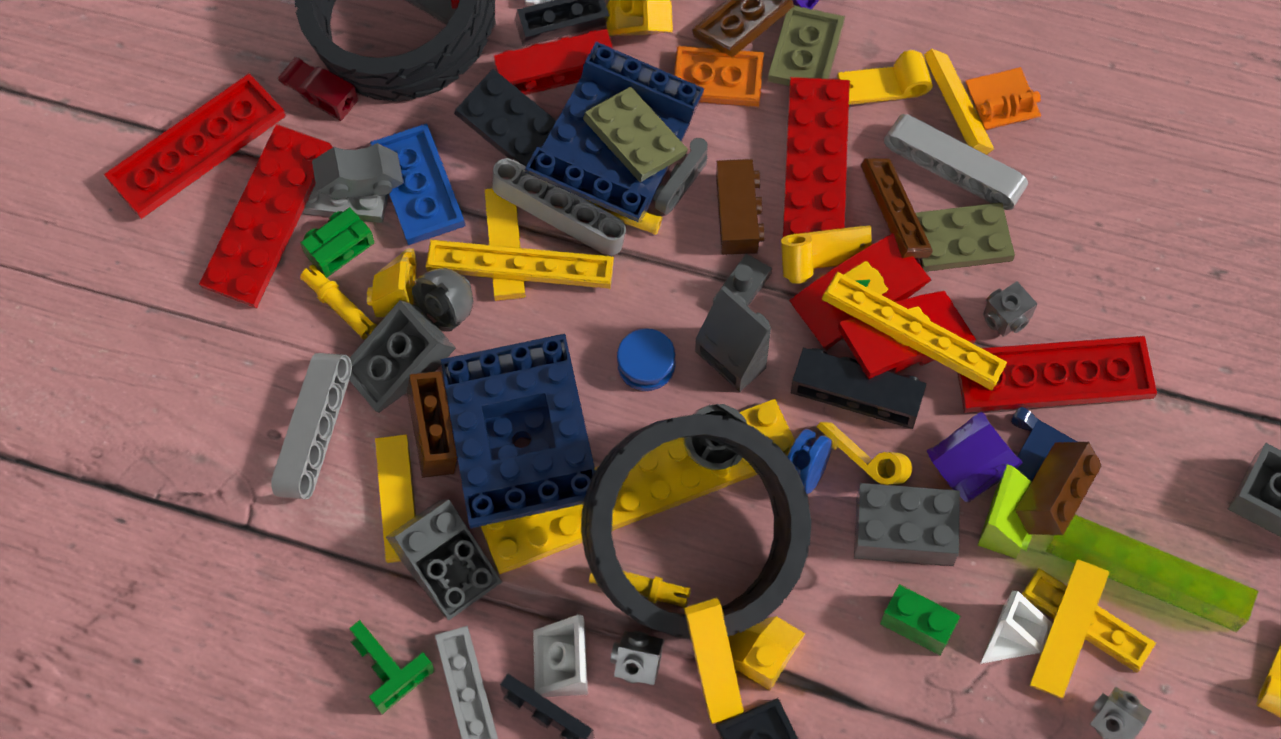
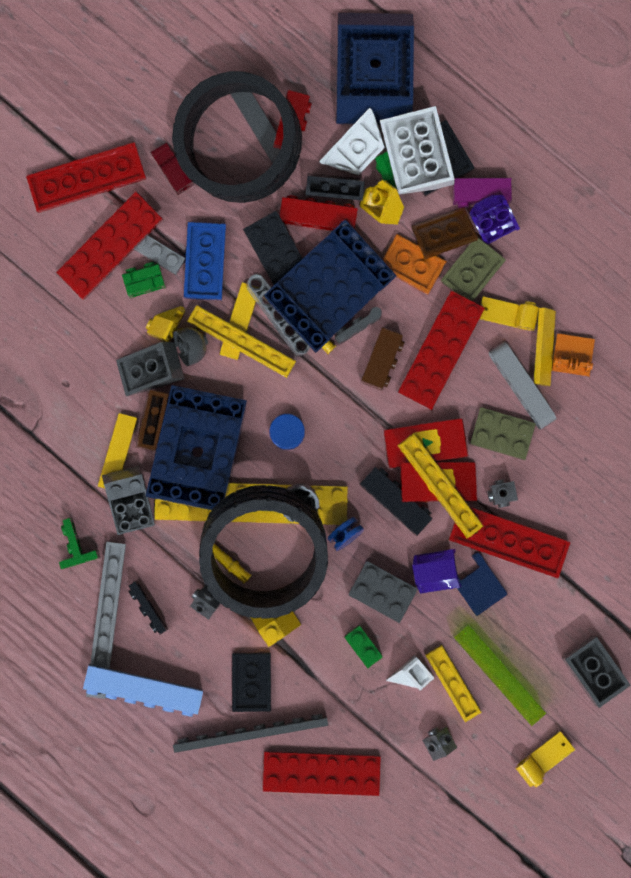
camera: 20 degrees right, 20 degrees up
(311, 426) = (87, 390): light grey beam -> none
(329, 293) = (130, 318): yellow pin -> none
(357, 172) = (170, 244): dark grey brick -> none
(561, 658) = (167, 583): white slope -> none
(635, 134) = (341, 290): olive plate -> none
(714, 660) = (242, 626): yellow tile -> none
(734, 339) = (336, 447): dark grey slope -> none
(748, 278) = (362, 409): dark grey tile -> none
(820, 249) = (406, 405): yellow door -> none
(885, 468) = (384, 557): yellow door -> none
(896, 208) = (472, 401): reddish brown tile -> none
(1003, 528) = (440, 611): lime slope -> none
(1058, 488) = (471, 612): reddish brown brick -> none
(1069, 628) = (439, 685): yellow tile -> none

